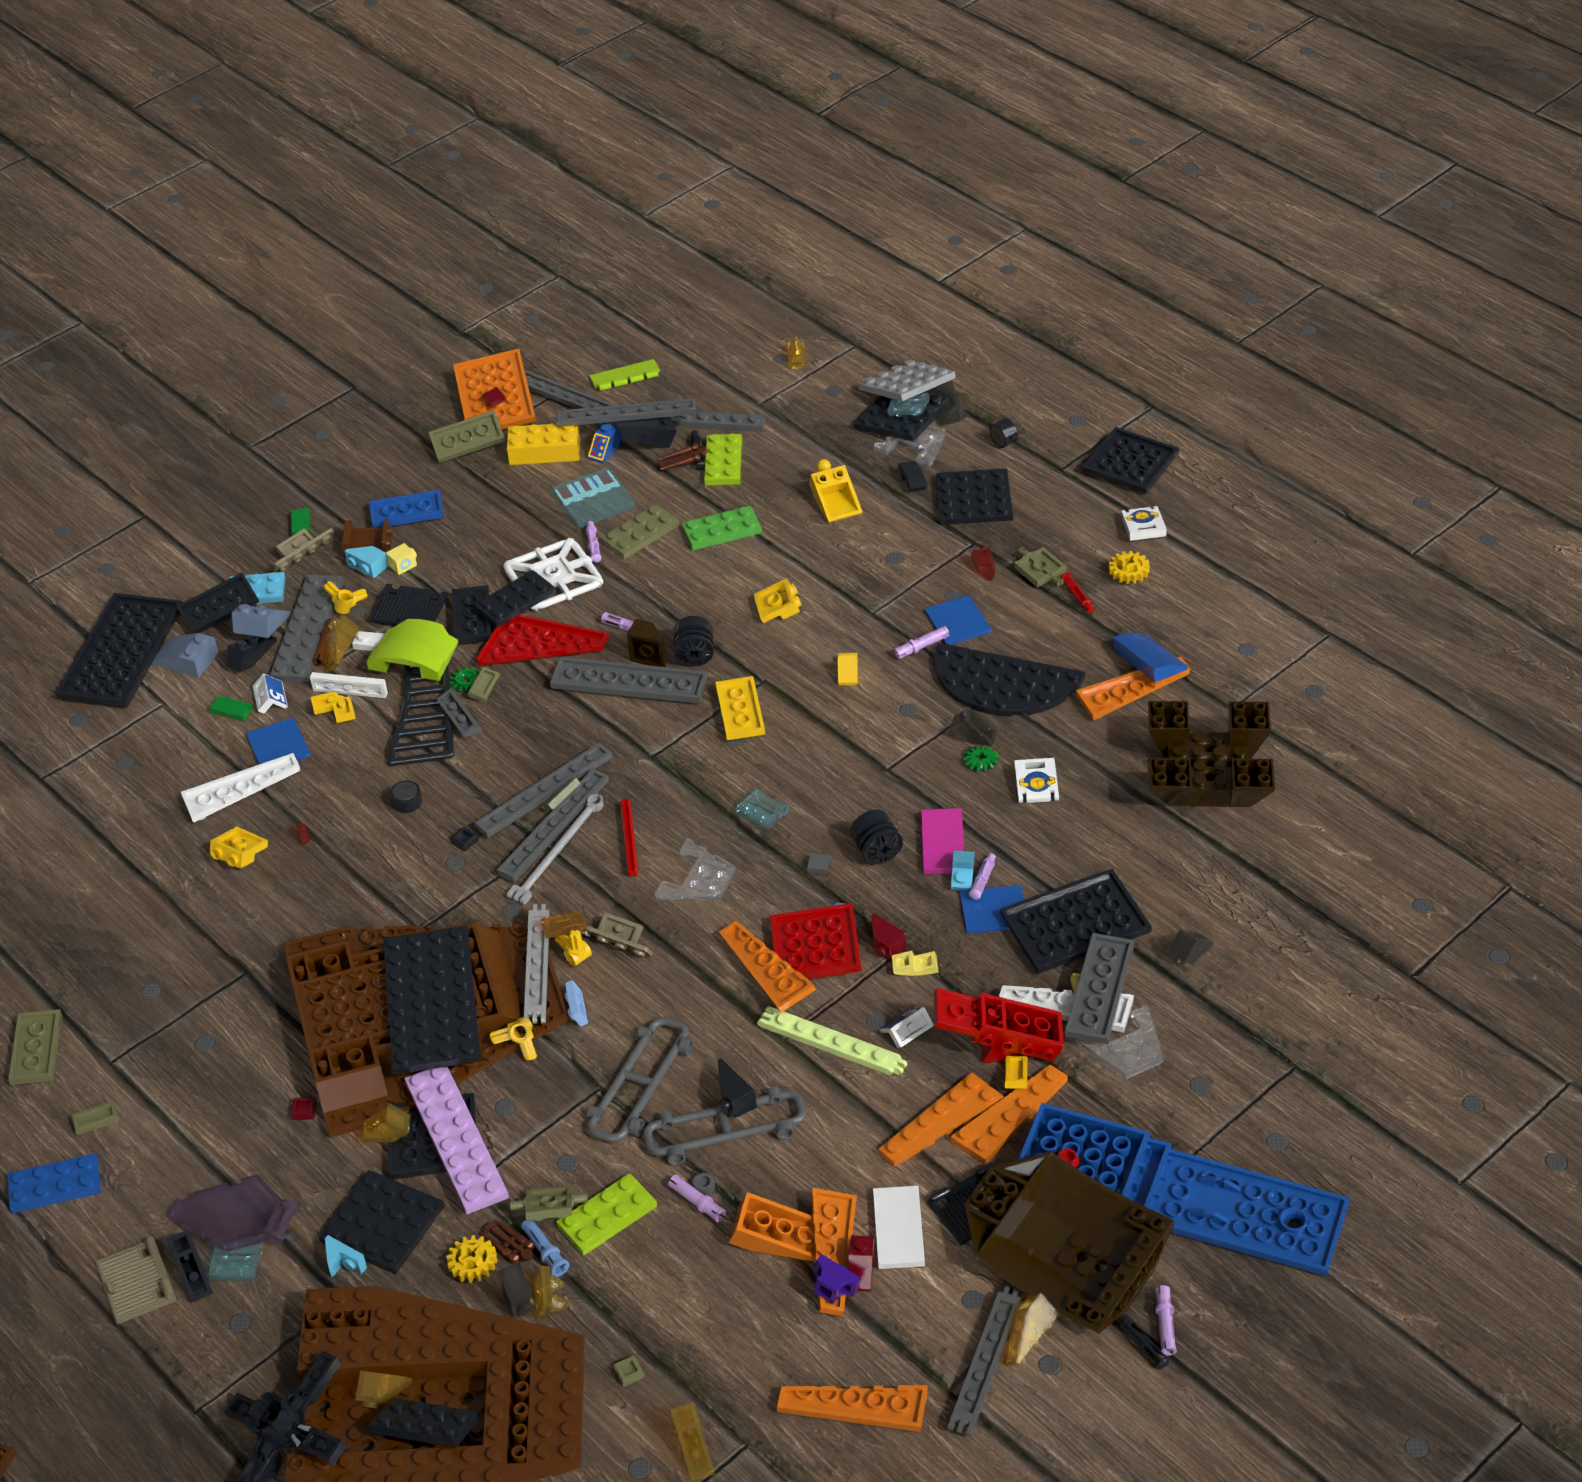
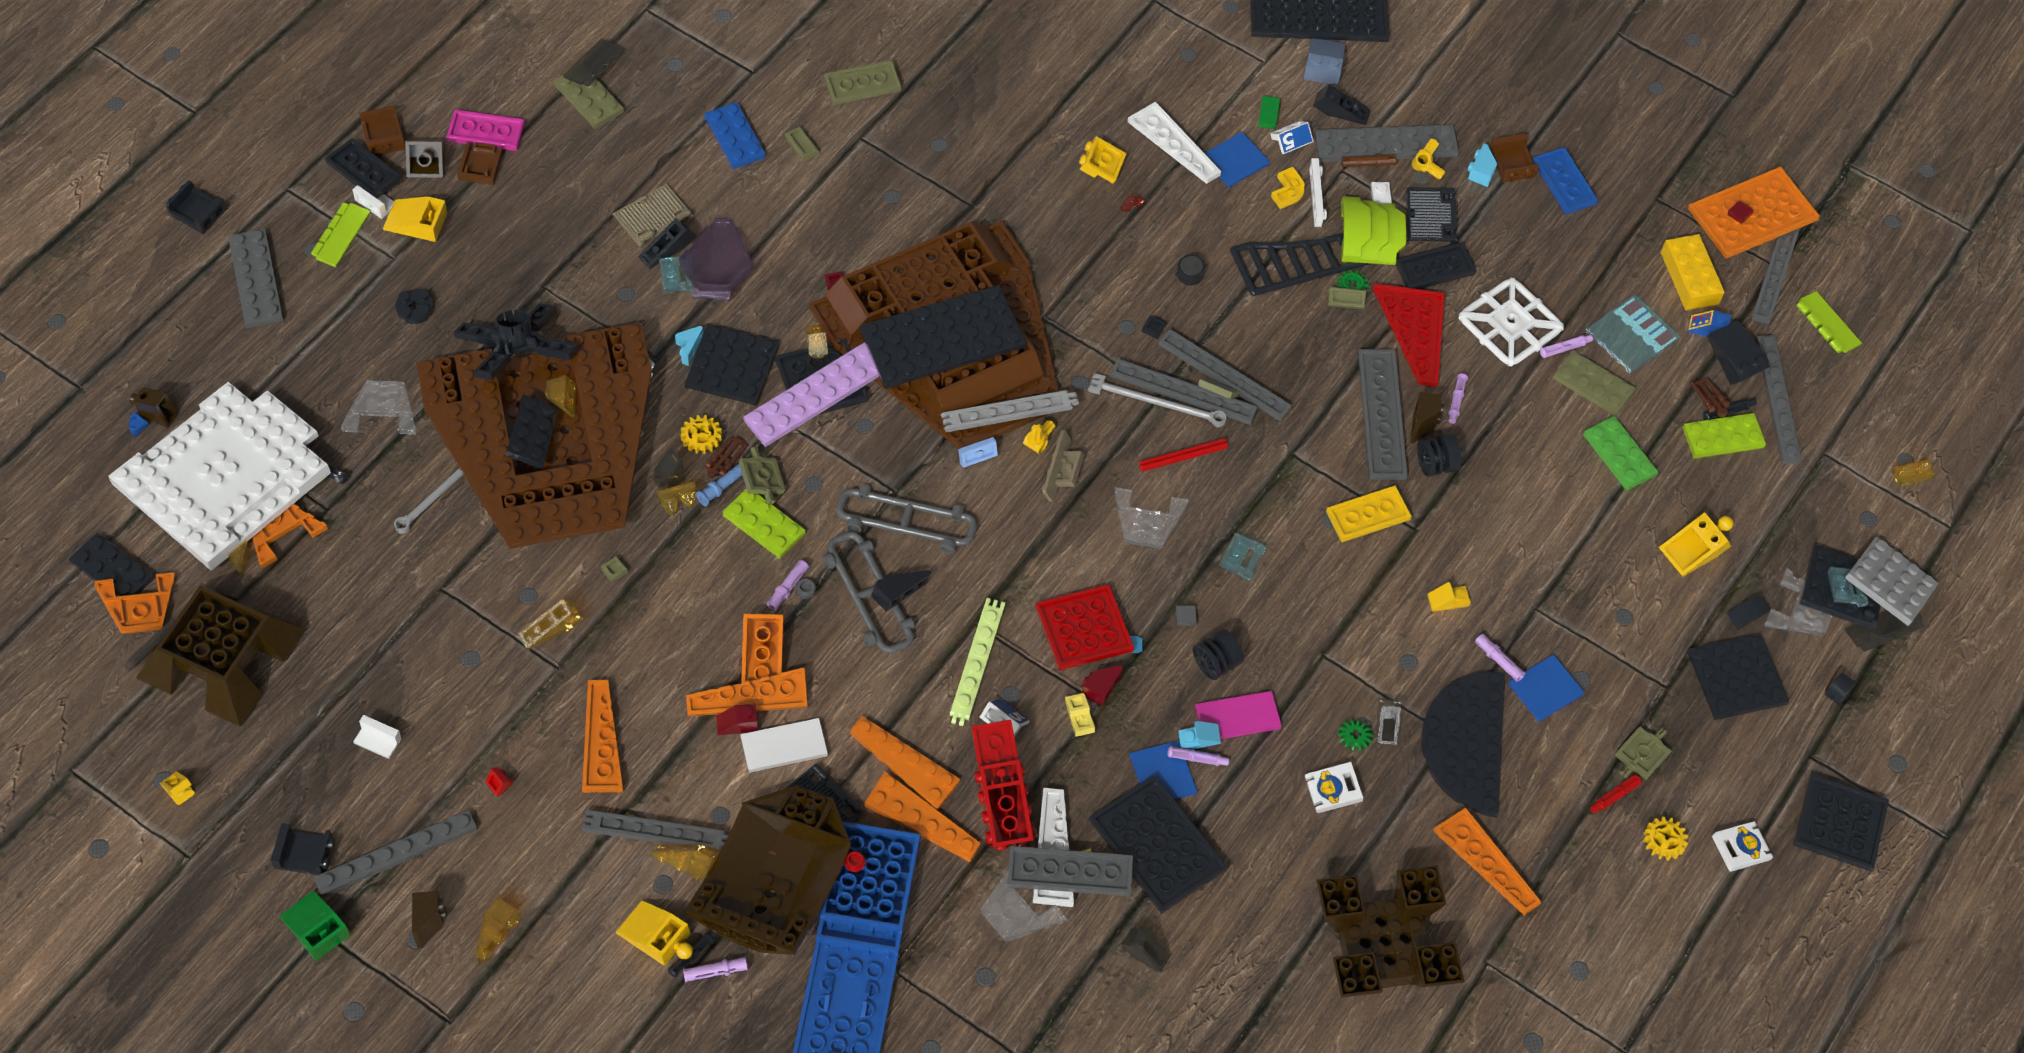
camera: 70 degrees right, 15 degrees up
(217, 603) = (1389, 65): black plate -> none
(257, 620) = (1378, 101): sand blue slope -> none
(268, 586) = (1425, 91): medium azure plate -> none
(299, 545) = (1485, 106): dark tan bracket -> none
(300, 520) = (1523, 102): green tile -> none
(338, 640) = (1372, 169): clear yellow slope -> none
(401, 558) = (1493, 193): light yellow brick -> none
(458, 713) = (1303, 287): dark grey slope -> none
(466, 436) = (1679, 204): olive plate -> none
(512, 1033) = (927, 413): yellow axle -> none
(515, 598) = (1460, 295): black plate -> none
(563, 924) = (1054, 420): clear orange tile -> none
(626, 412) = (1745, 329): dark grey tile -> none
(774, 976) = (1036, 598): orange wing -> none
(777, 601) = (1521, 519): yellow plate -> none
(834, 1280) = (708, 698): dark purple brick -> none
(984, 562) = (1634, 699): clear red plate -> none
(1016, 1072) = (963, 815): yellow tile -> none
(1114, 1370) = (656, 933): none -> yellow slope
(1148, 656) = (1532, 870): blue slope -> none

